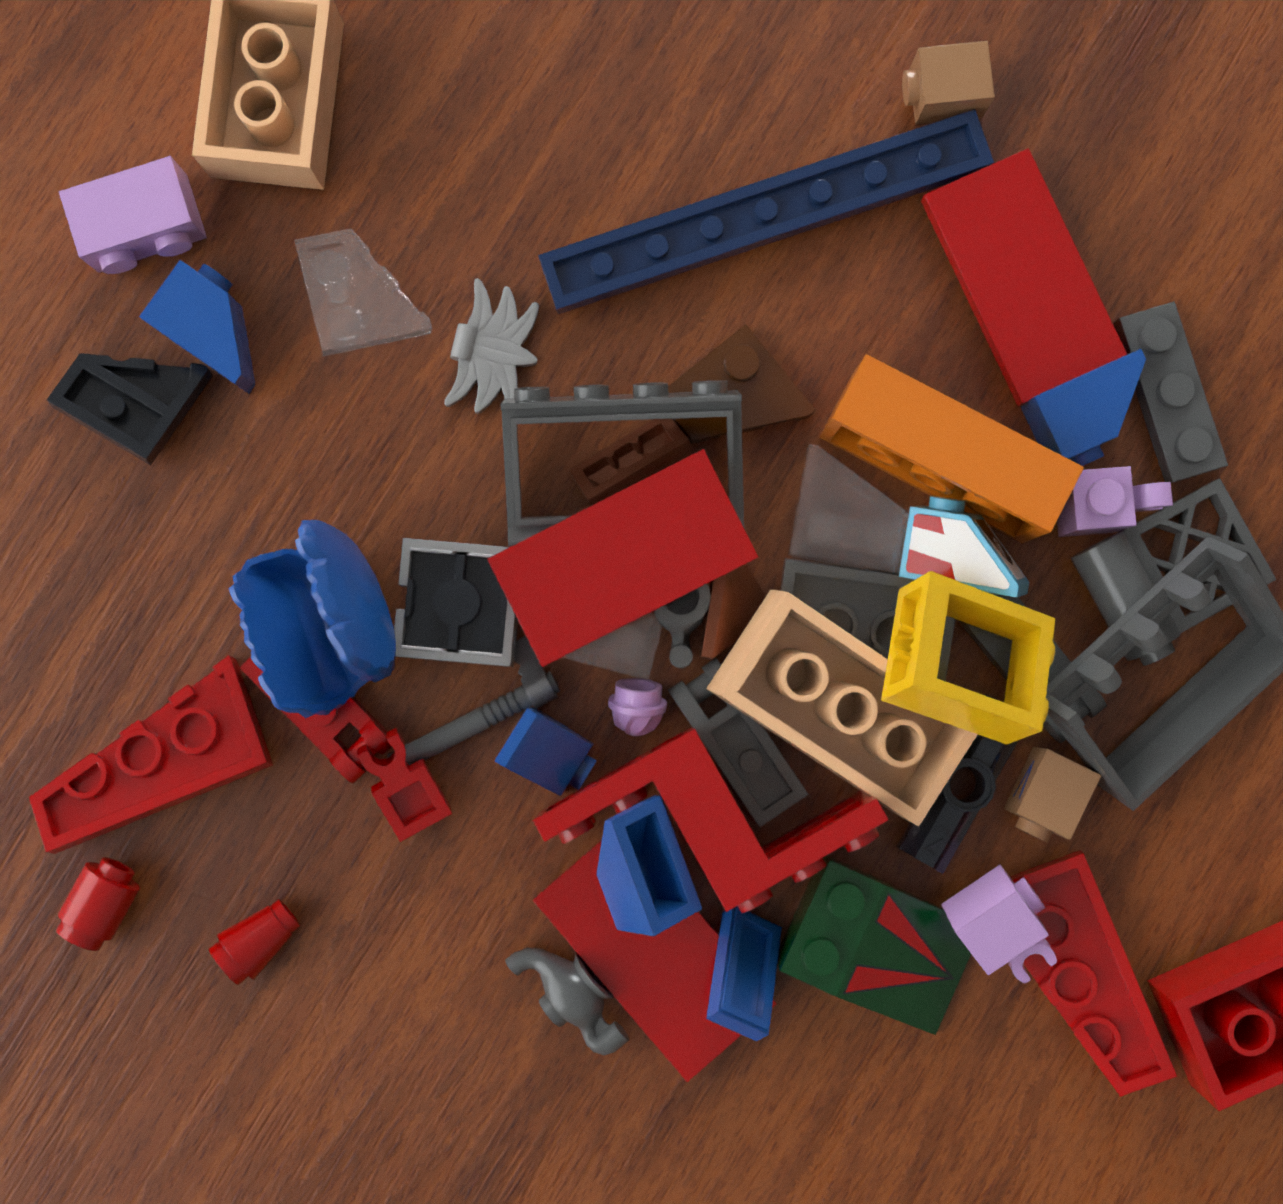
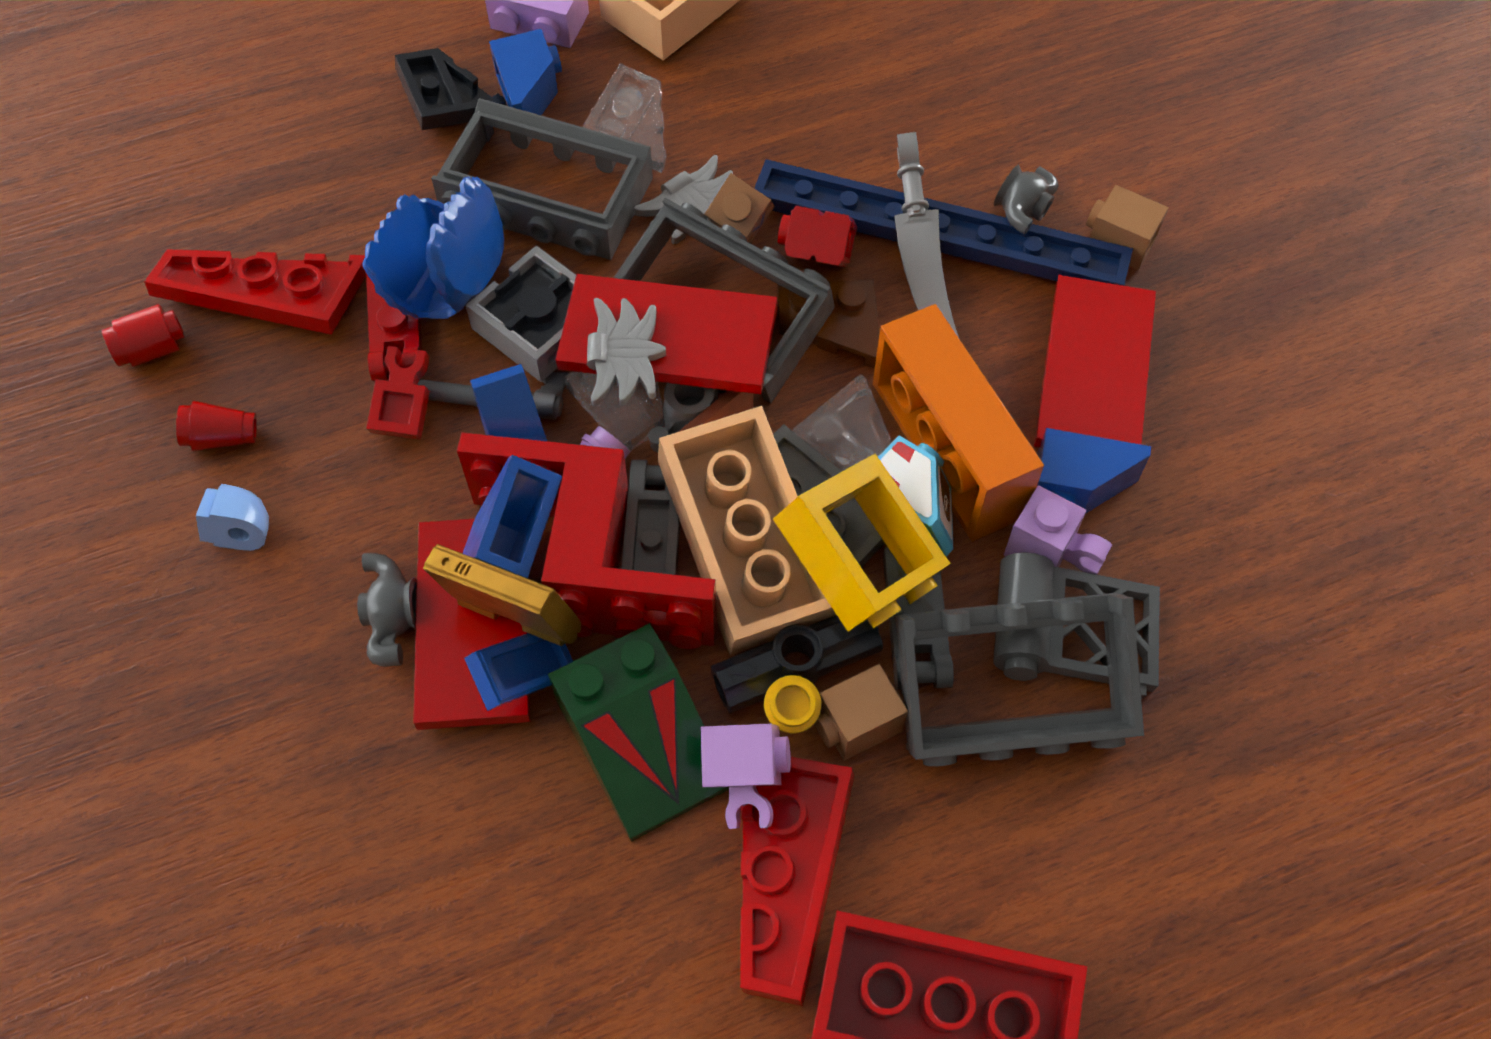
camera: 35 degrees right, 25 degrees down
(356, 1012) = (232, 518): none -> light blue piece
(371, 490) = (540, 216): none -> dark grey window
(567, 346) = (740, 207): none -> medium nougat brick
(604, 616) = (623, 352): none -> light grey piece
(676, 330) = (818, 236): none -> red brick
(697, 944) = (503, 593): none -> pearl gold piece
(777, 266) = (919, 233): none -> light grey sword
(829, 114) = (1026, 196): none -> dark grey piece
(998, 837) = (792, 704): none -> yellow plate
(1172, 394) = (1159, 512): dark grey plate -> none

